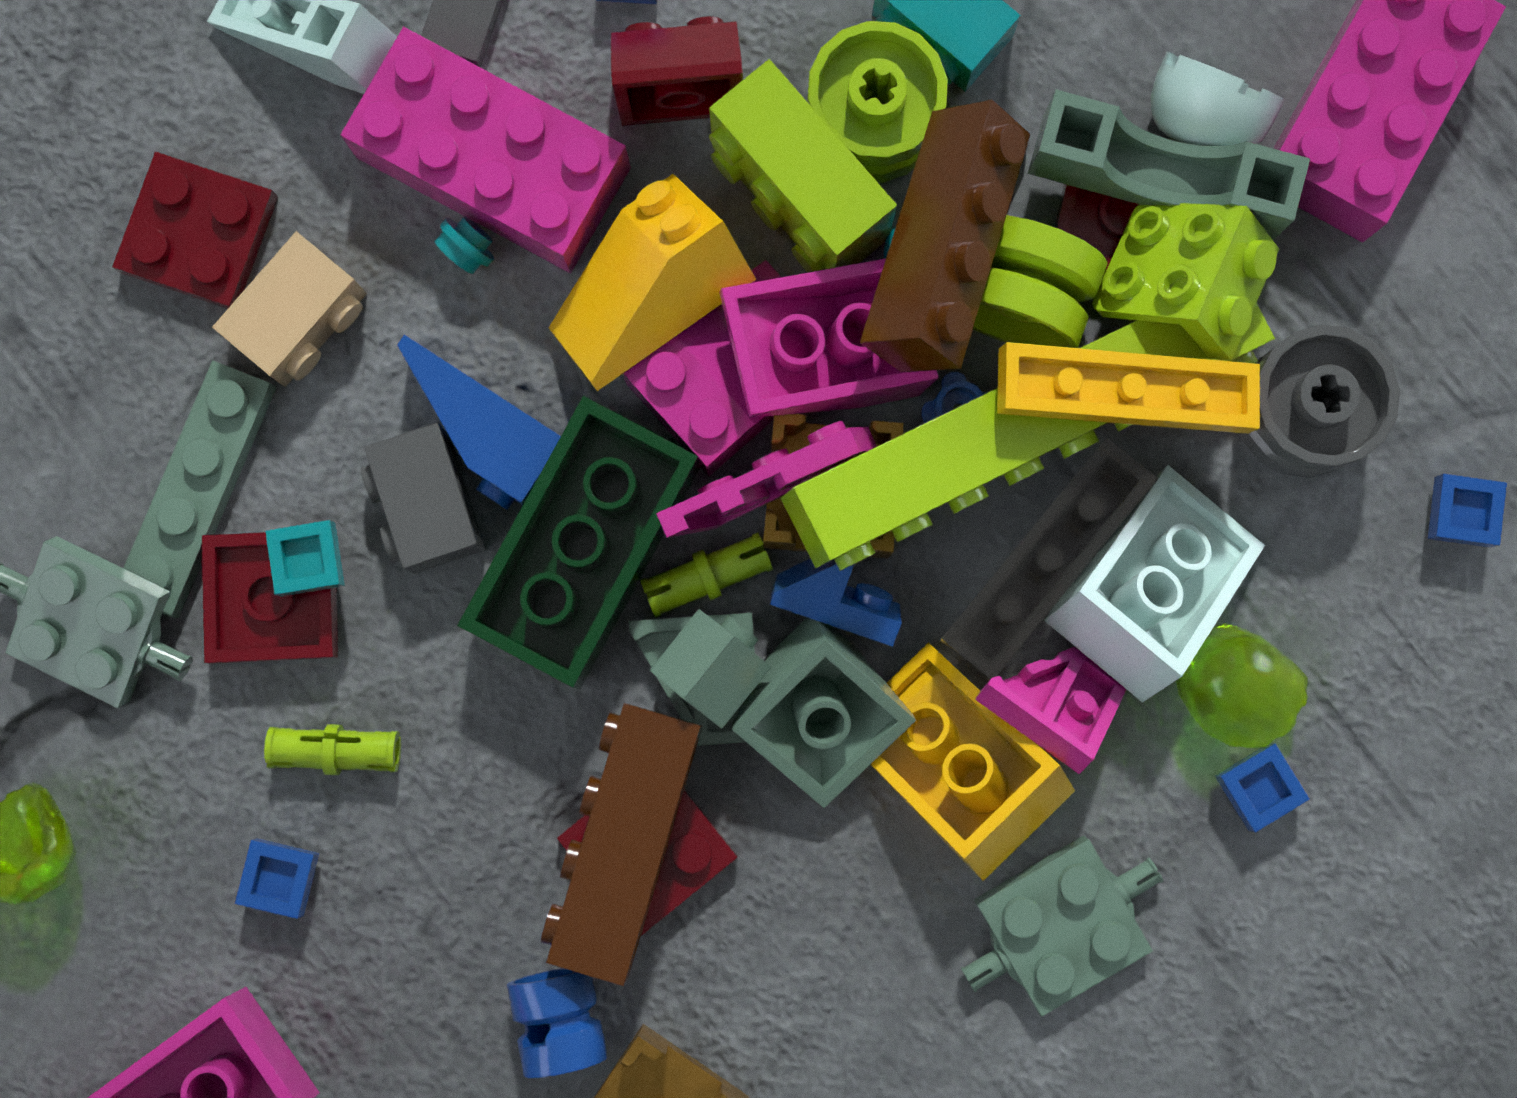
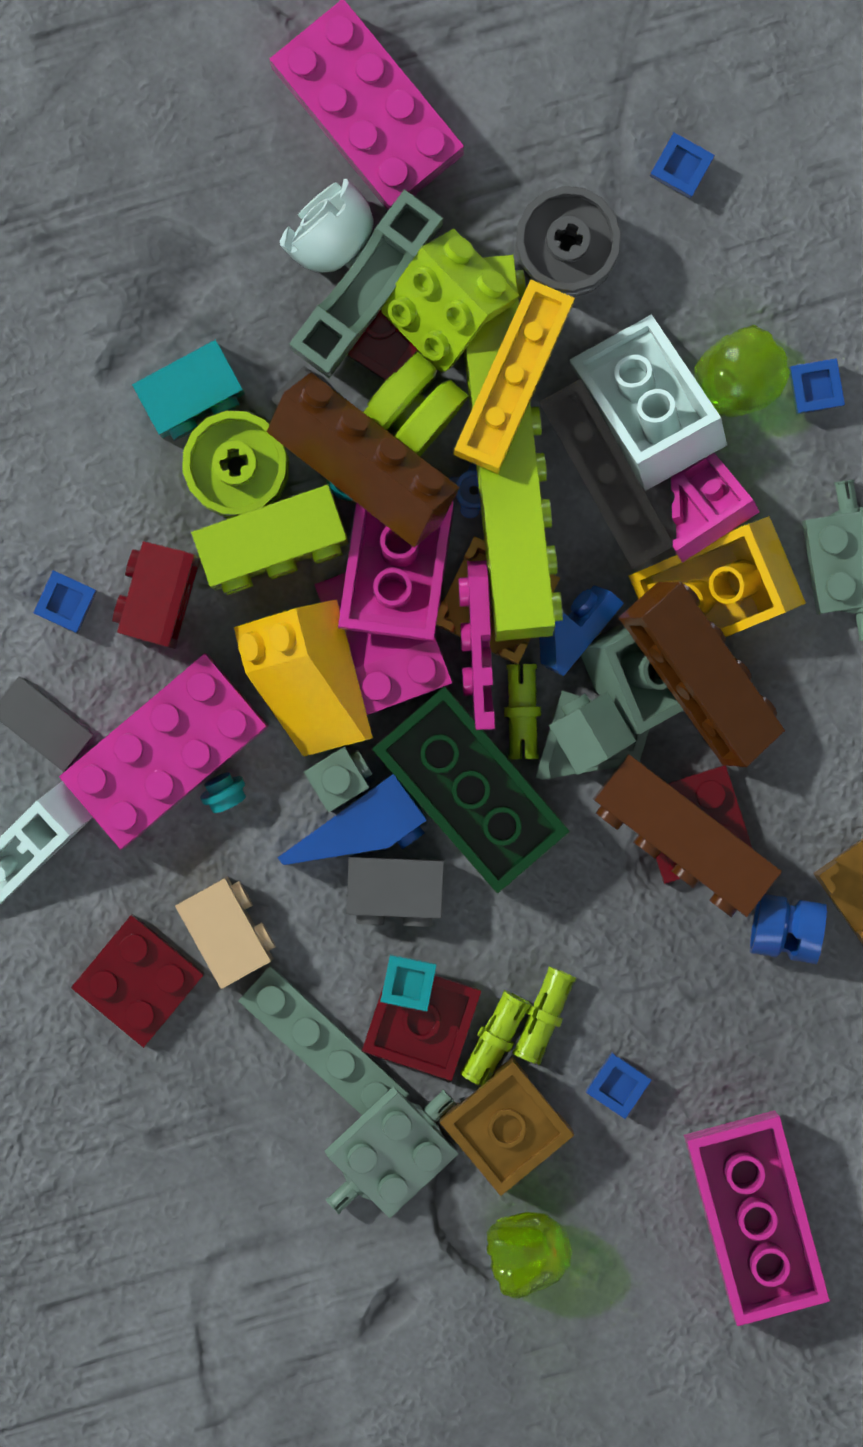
camera: 70 degrees left, 5 degrees up
(166, 756) = (506, 1127): none -> pearl gold panel
(280, 698) = (495, 1038): none -> lime pin
(534, 375) = (339, 777): none -> sand green brick
(843, 781) = (702, 673): none -> reddish brown brick

